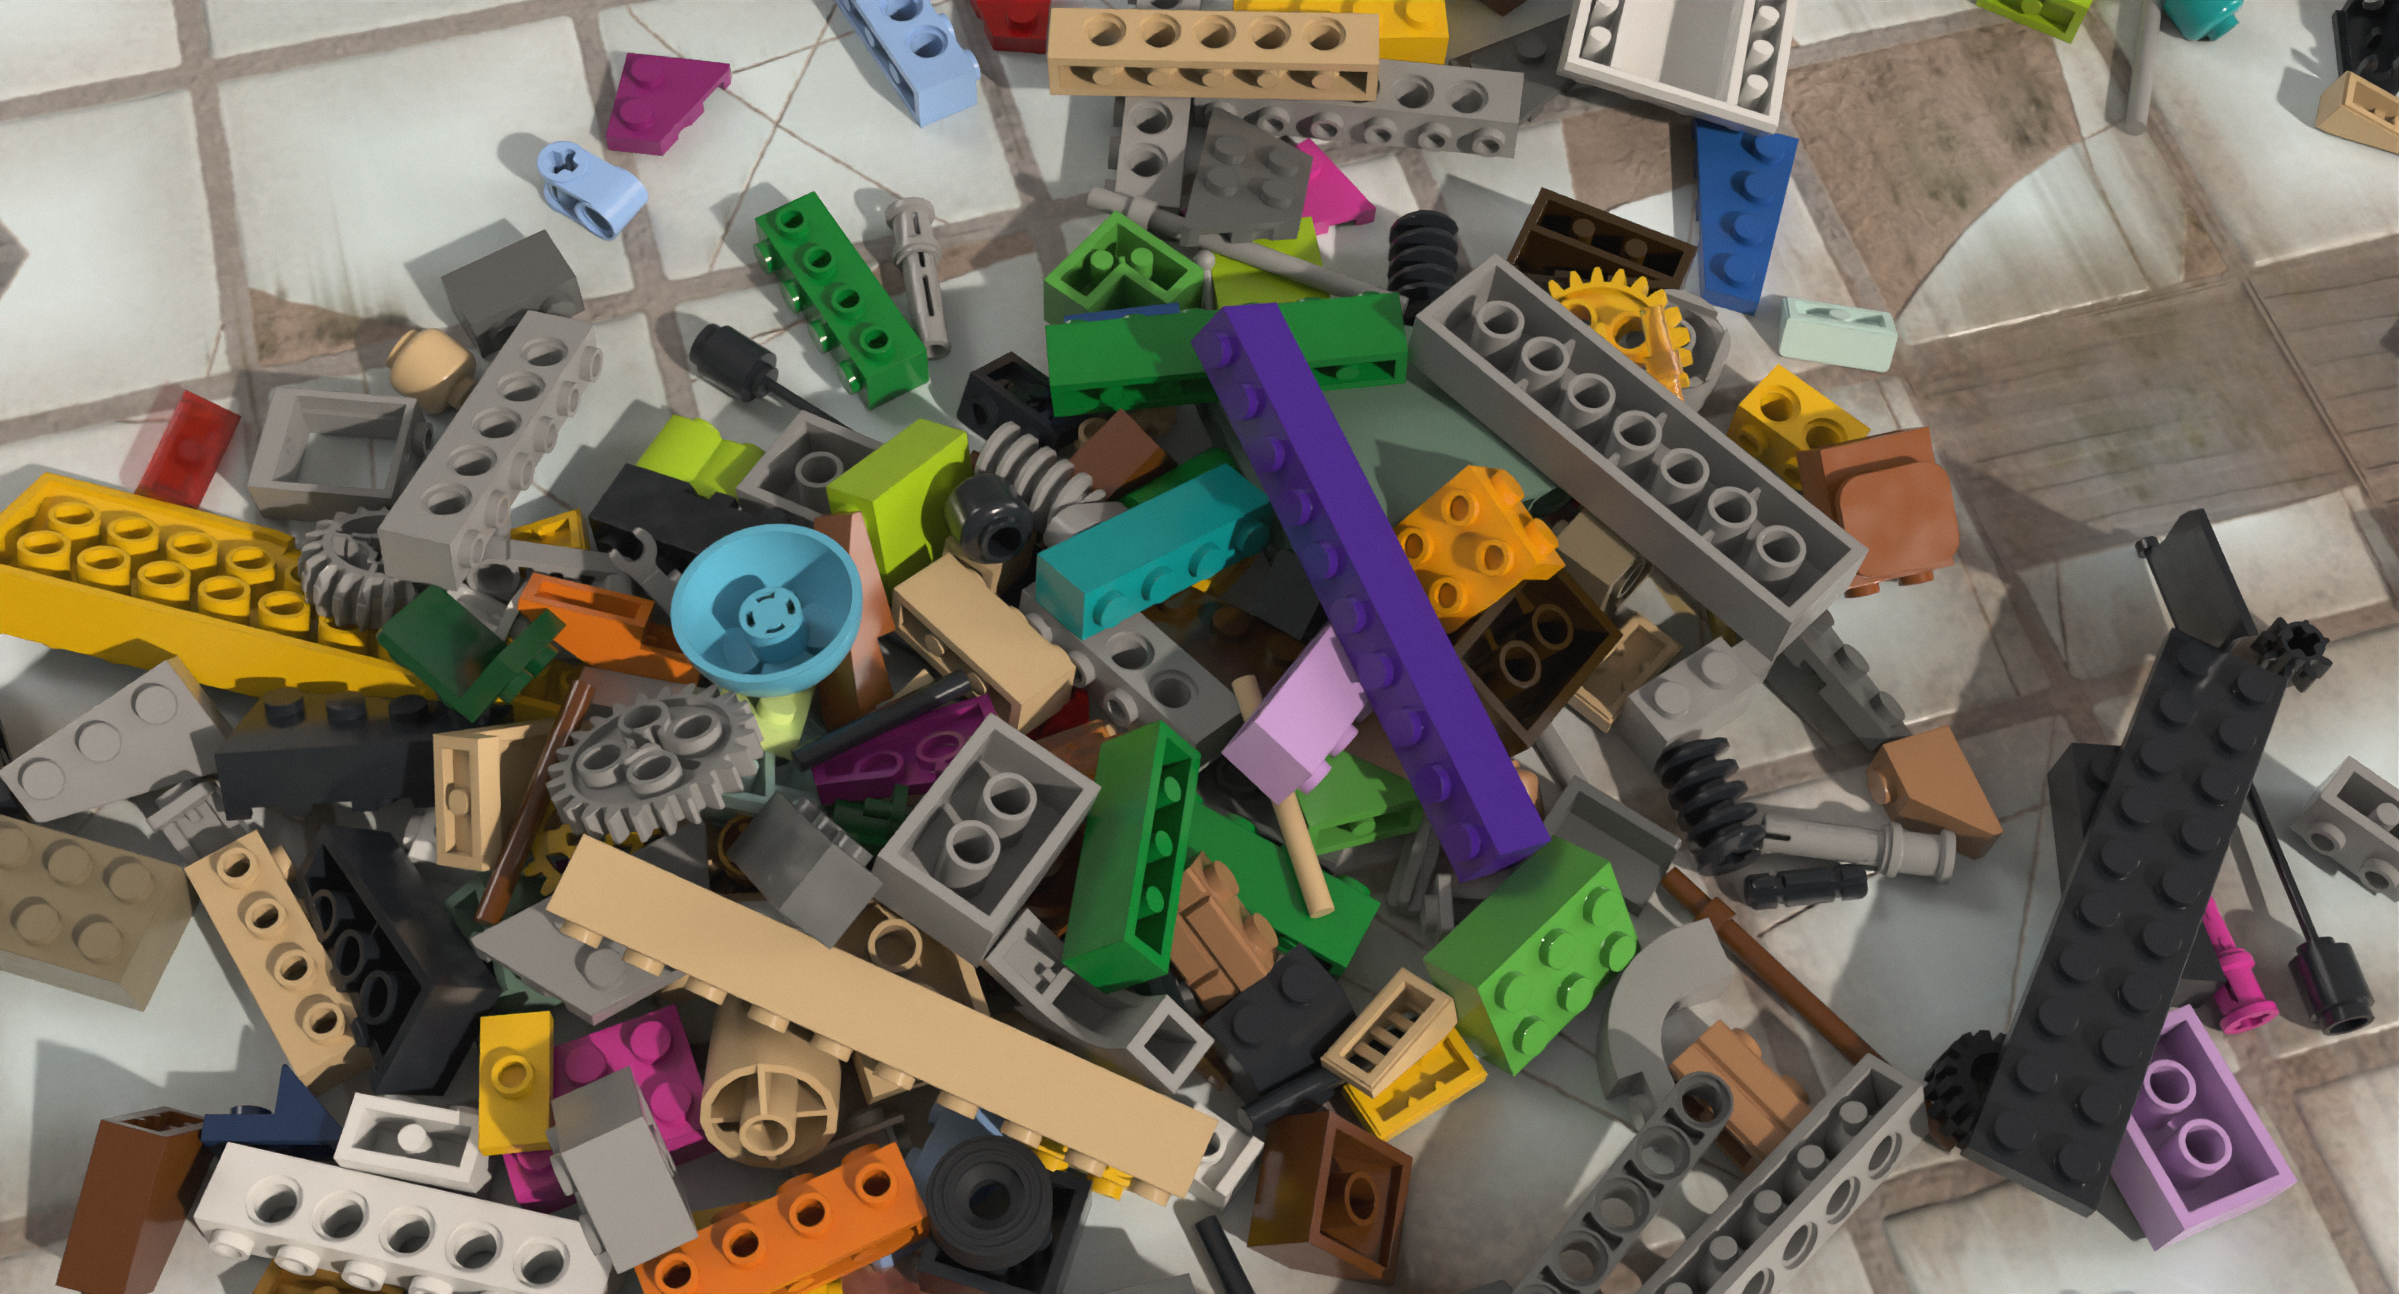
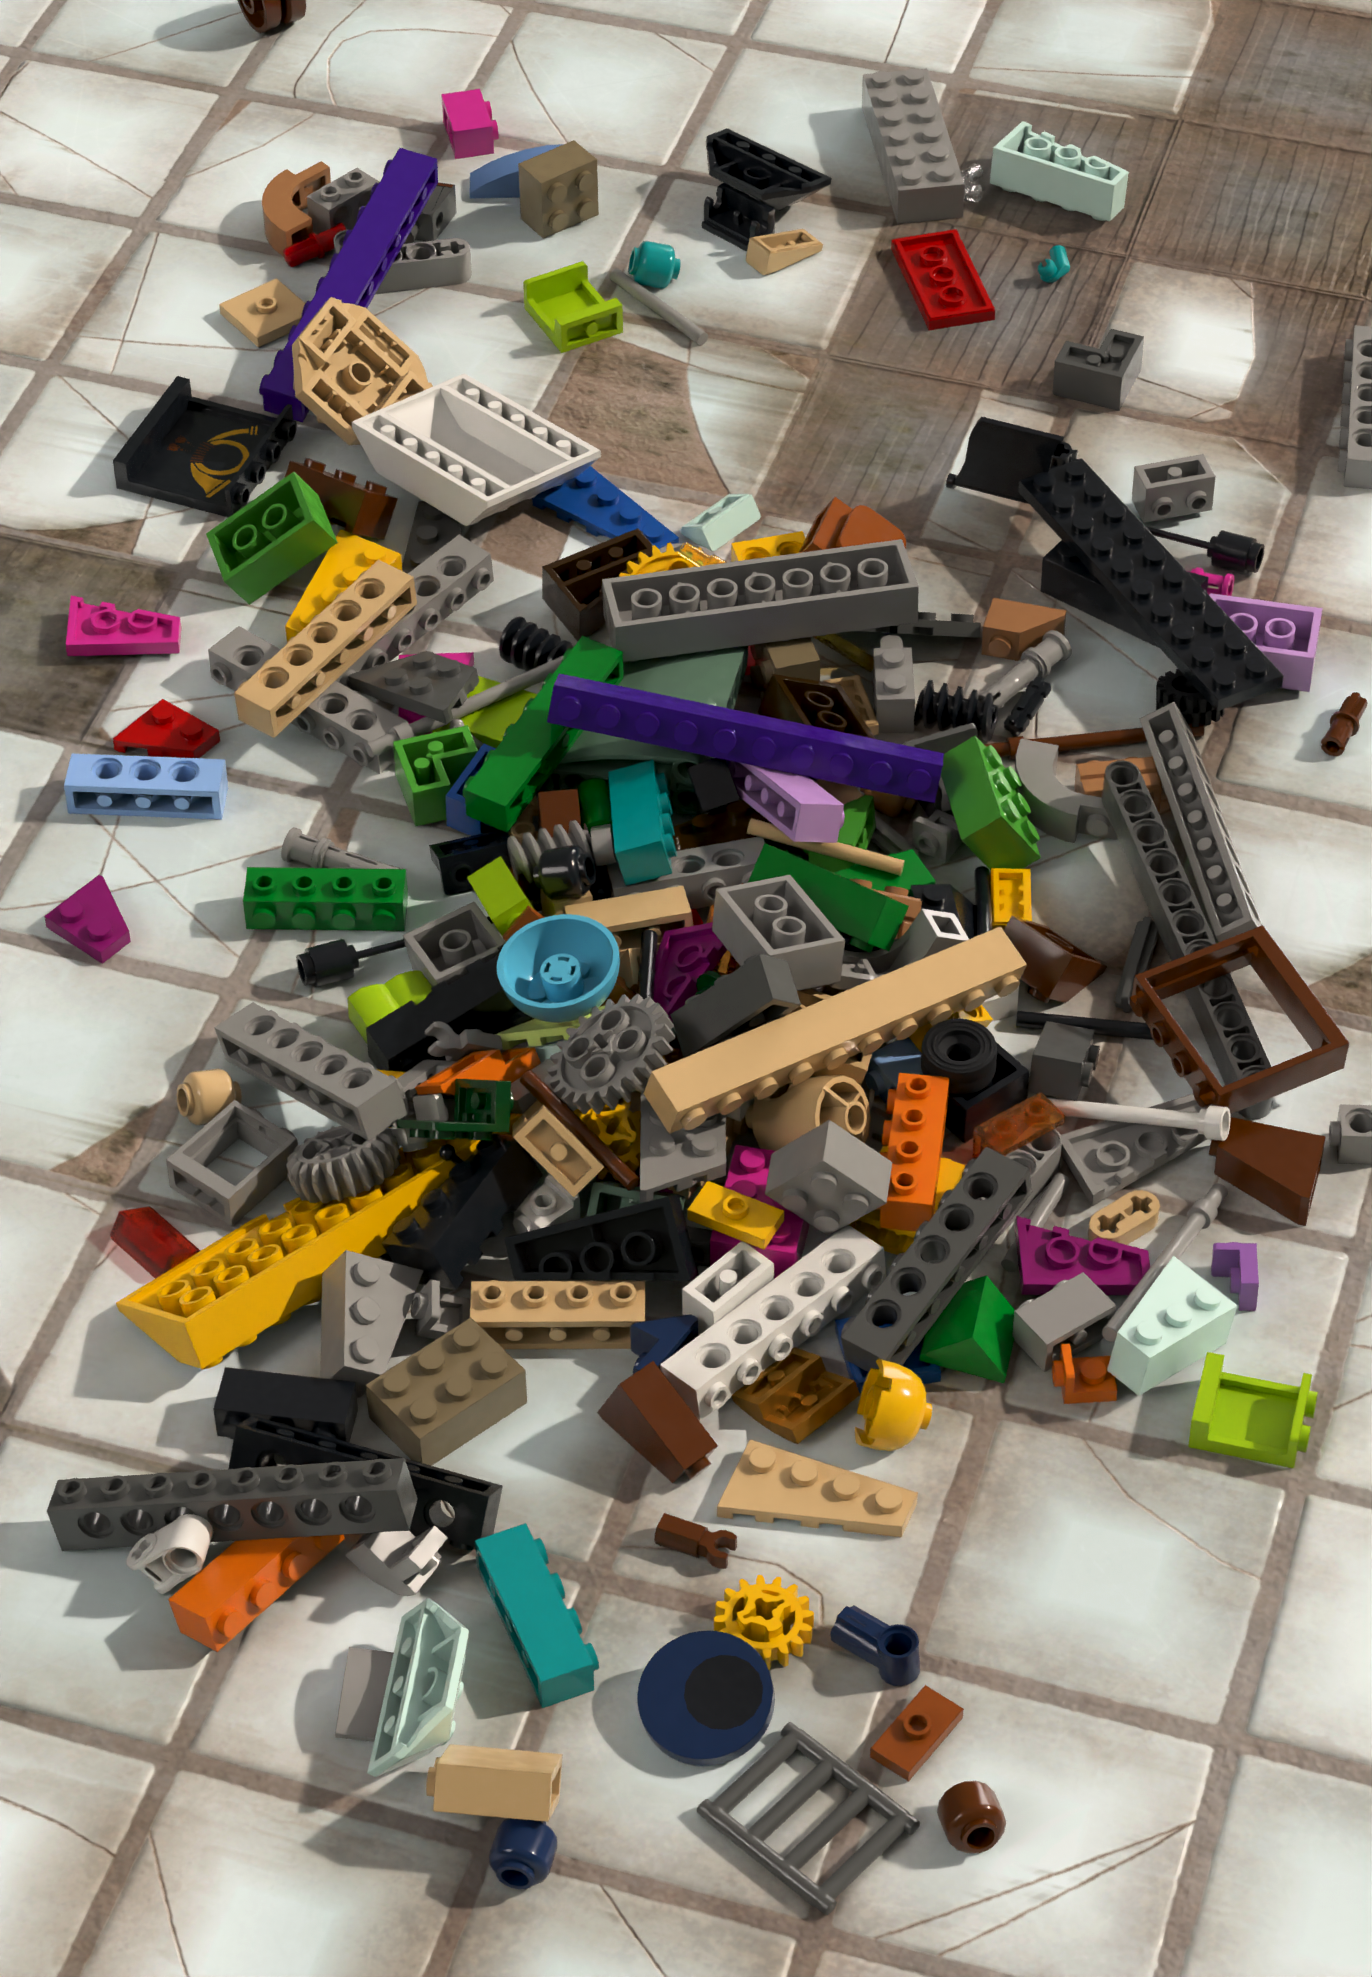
camera: 50 degrees left, 15 degrees down
(501, 287) = (184, 1037): dark grey brick -> none
(589, 189) = (141, 973): light blue piece -> none
(1401, 994) = (981, 869): tan slope -> none
(1475, 544) = (758, 684): light orange bracket -> none

